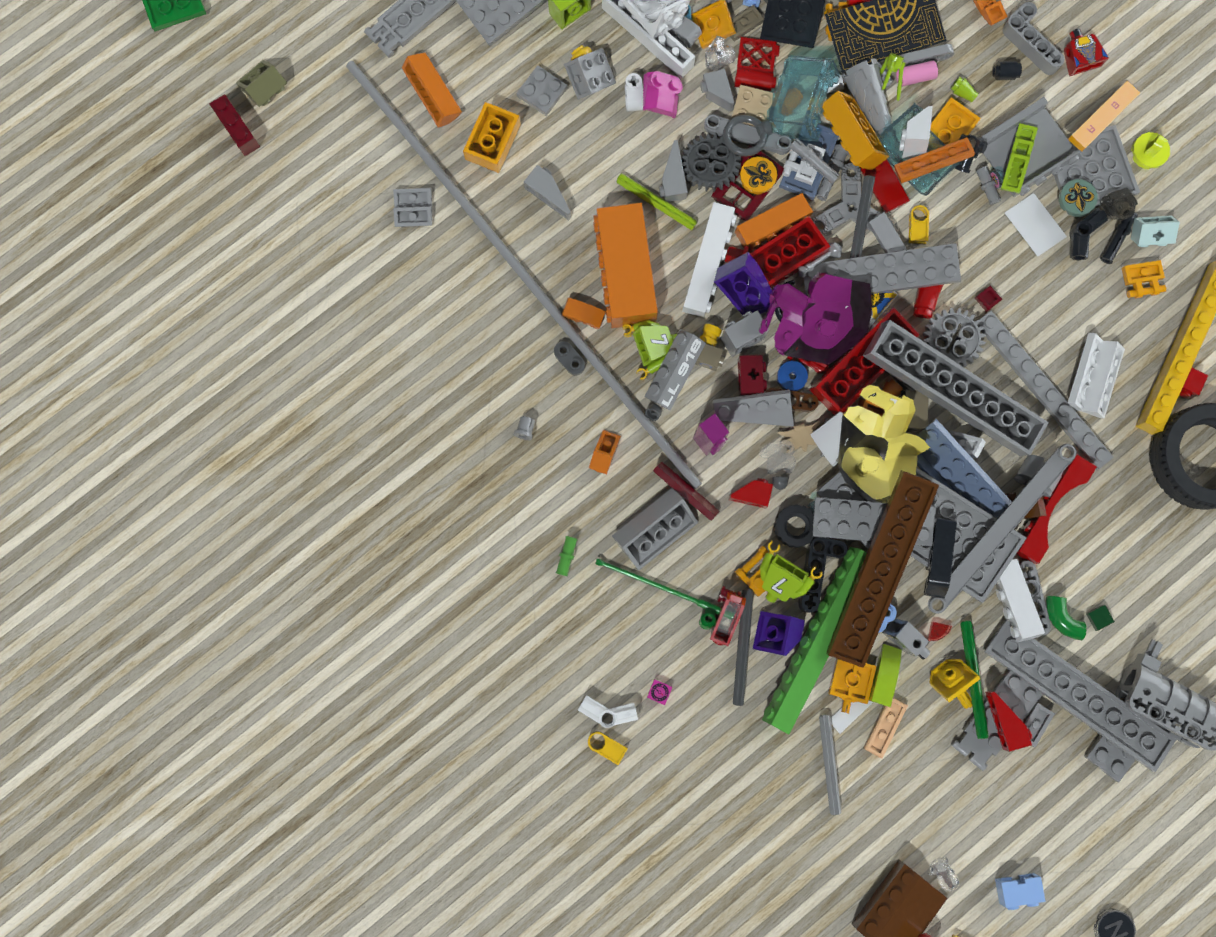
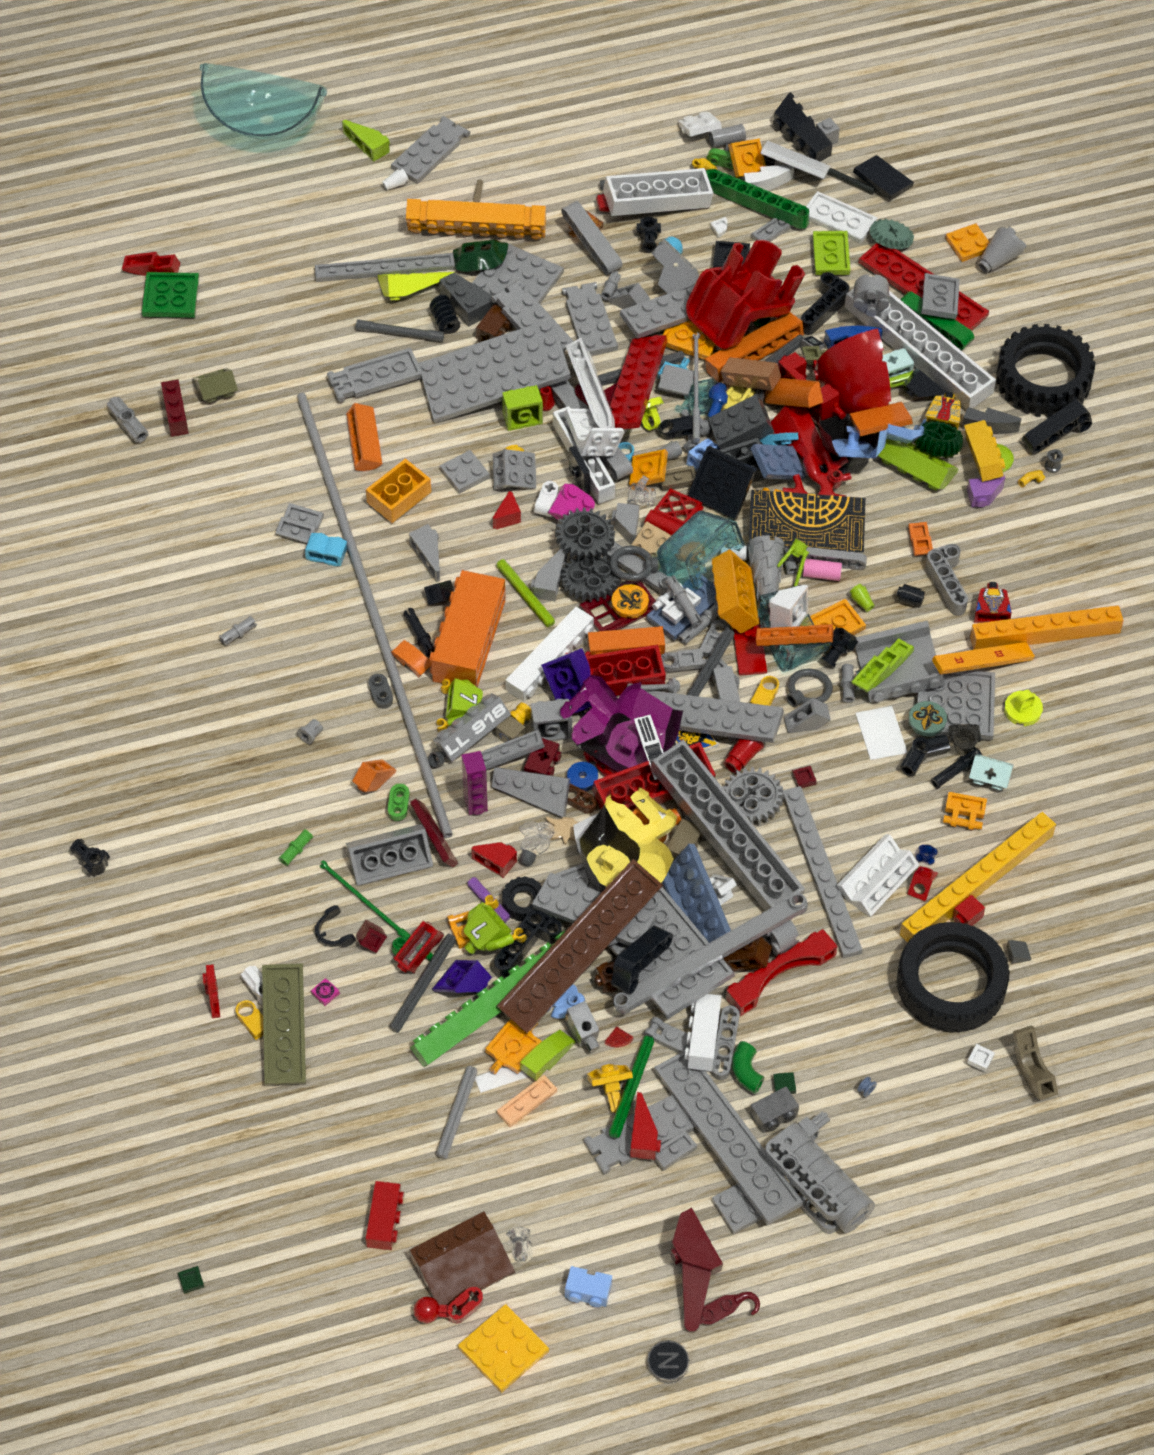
camera: 25 degrees right, 25 degrees down
(187, 150) = (127, 419): none -> light grey piece
(380, 643) = (89, 856): none -> black connector
(408, 347) = (237, 630): none -> light grey pin
(451, 226) = (326, 549): none -> medium azure brick
(557, 735) = (211, 989): none -> red wing
(578, 232) = (438, 592): none -> black panel
(583, 287) = (422, 638): none -> black pin
(605, 121) = (507, 513): none -> red slope
(639, 471) = (398, 803): none -> bright green plate
(642, 748) = (283, 1024): none -> olive plate
(653, 51) = (579, 470): none -> black plate
(653, 635) = (344, 941): none -> black piece
(676, 620) = (371, 936): none -> dark red panel
(705, 126) = (595, 533): none -> dark grey gear
(715, 382) = (512, 749): none -> light grey tile
(763, 538) = (481, 892): none -> medium lavender axle
(814, 896) = (384, 1215): none -> red brick
(850, 325) = (649, 738): none -> sticker
(915, 576) = (604, 977): none -> reddish brown brick
(949, 218) = (796, 697): none -> dark grey piece
(970, 235) = (808, 716): none -> light grey slope
(982, 611) = (670, 1037): none -> light grey plate
(1106, 650) = (774, 1110): none -> flat silver brick
(1112, 840) = (699, 1262): none -> dark red slope
(1133, 336) = (927, 849): none -> clear blue plate
(1139, 362) = (923, 876): none -> red bracket
(1141, 60) = (1048, 627): none -> light orange brick
(1174, 593) = (867, 1086): none -> sand blue bush

